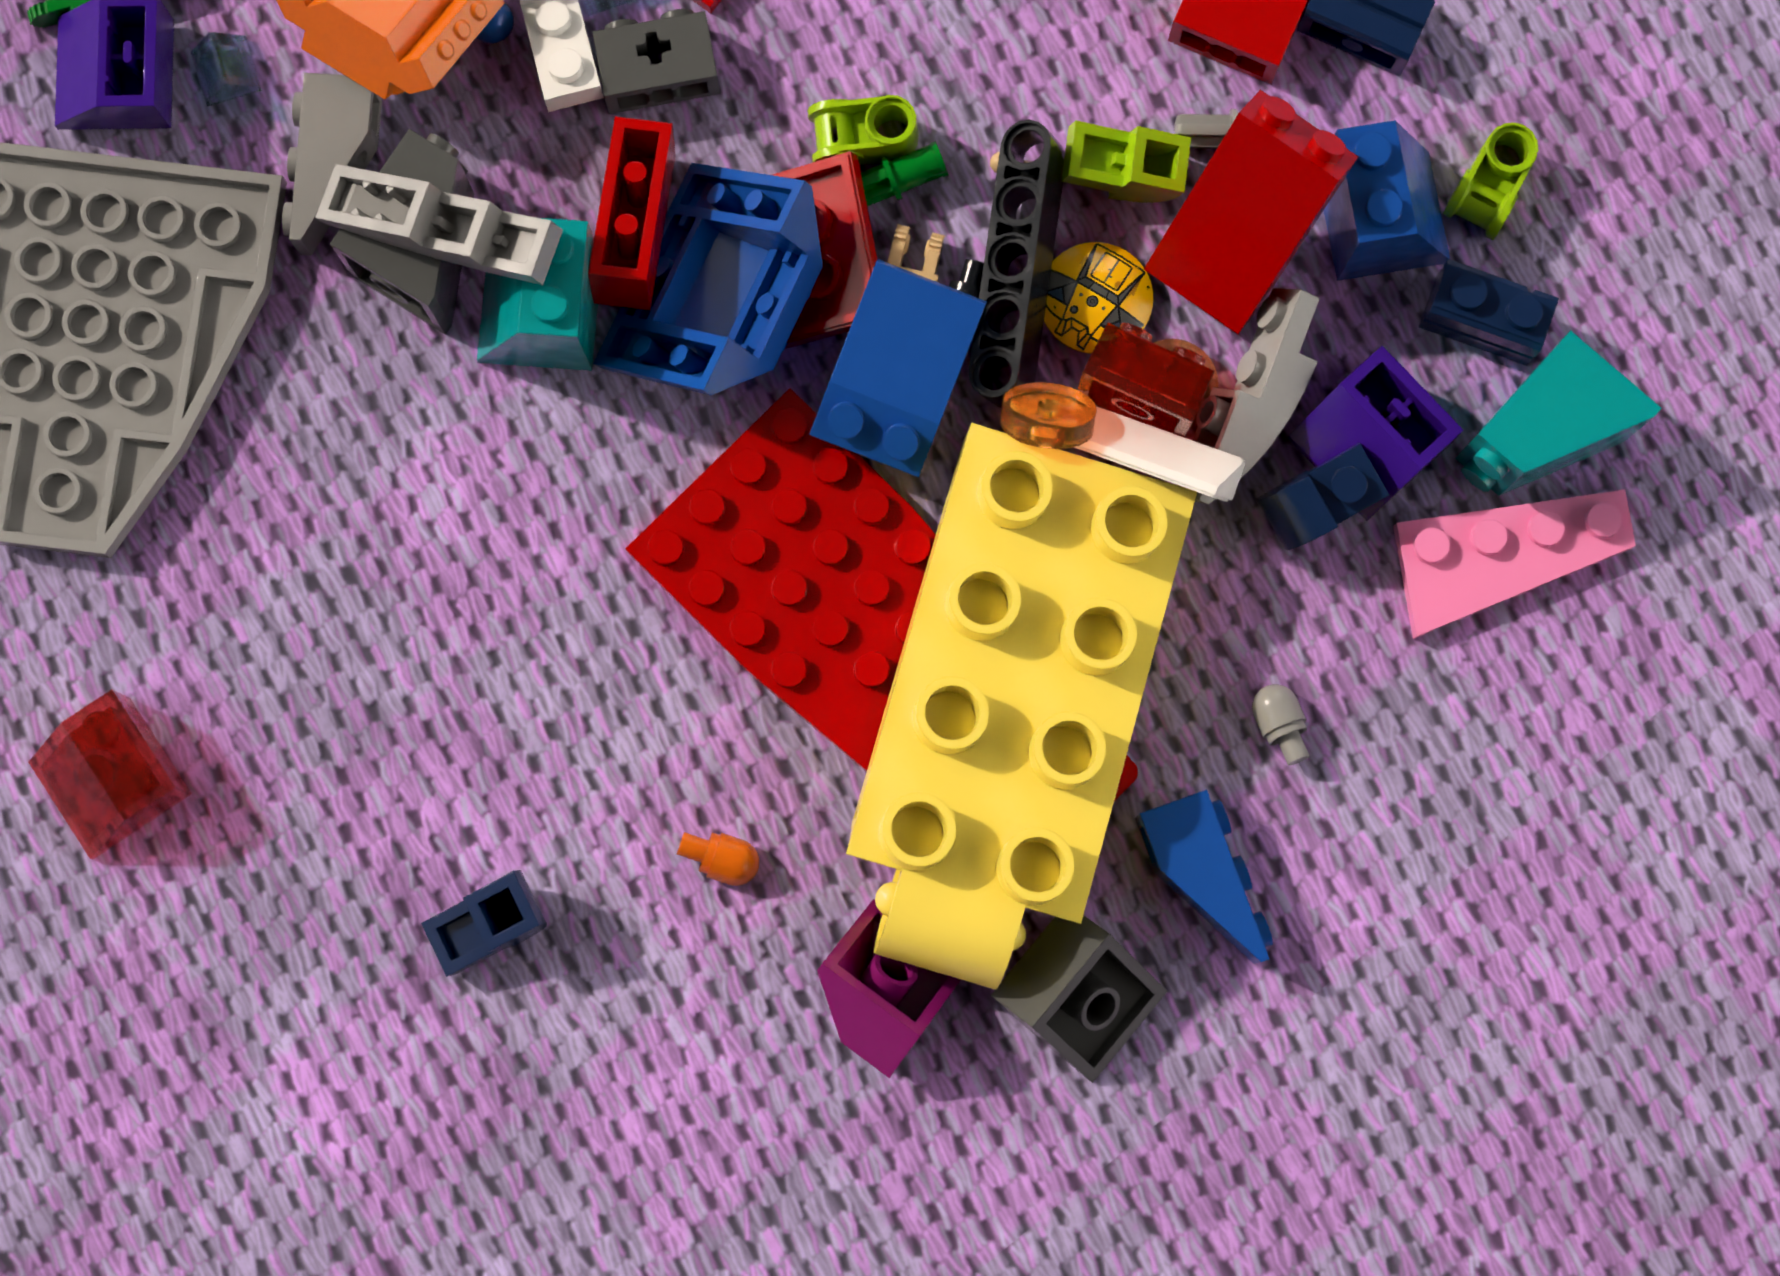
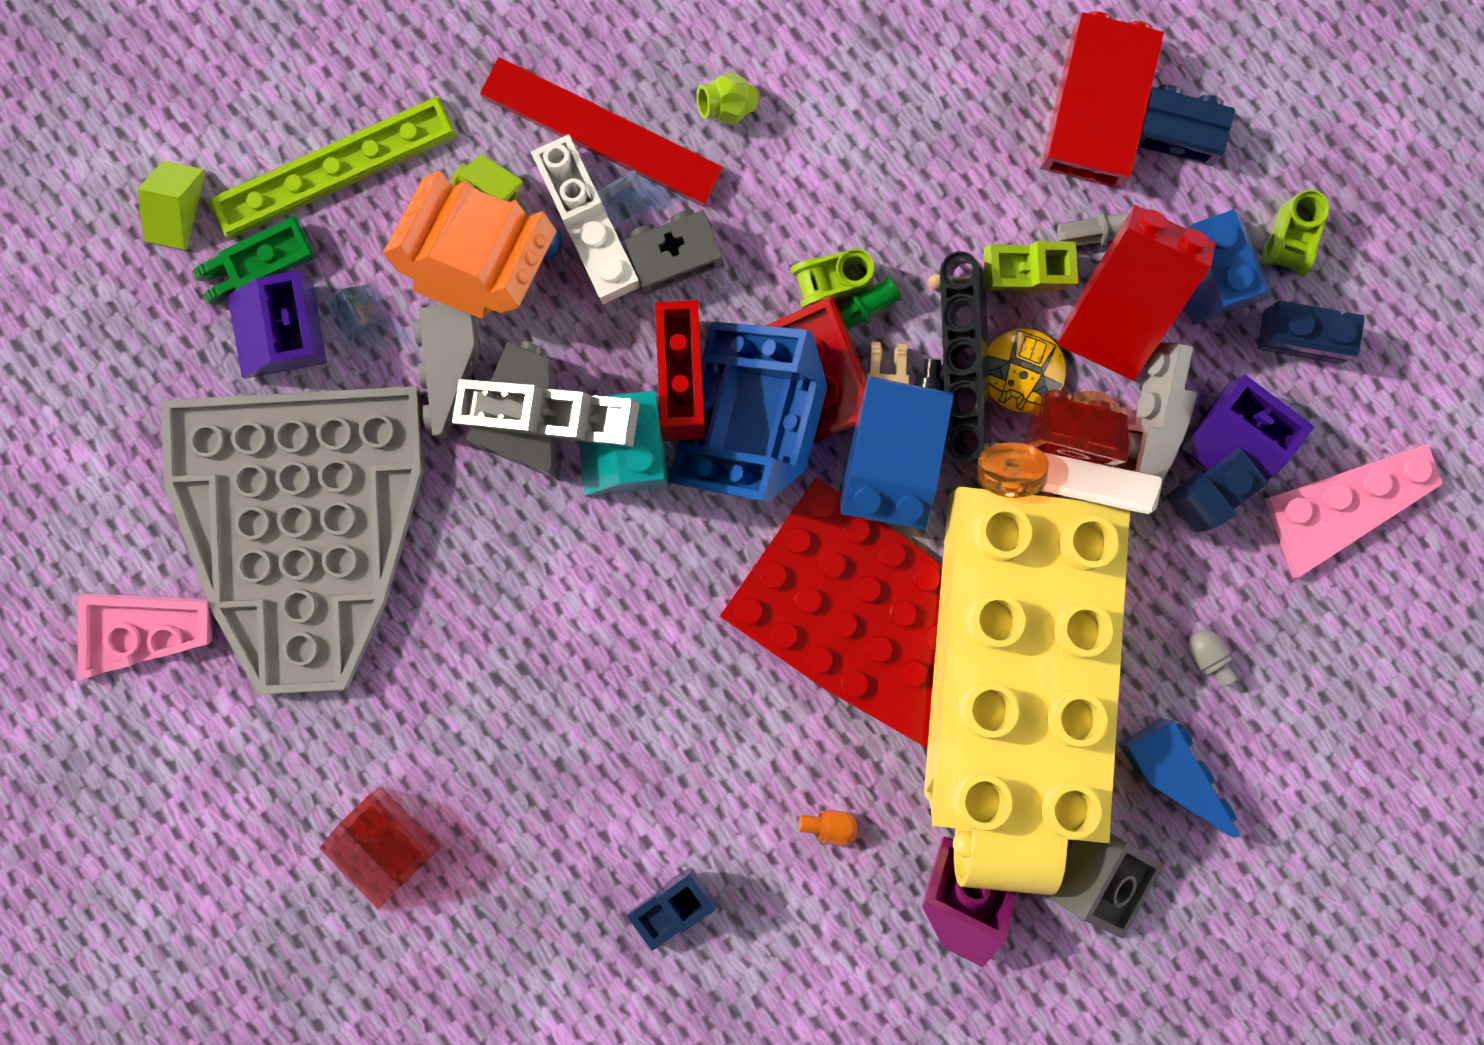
camera: 15 degrees left, 5 degrees up
(1556, 418) = (1374, 403): teal slope -> none

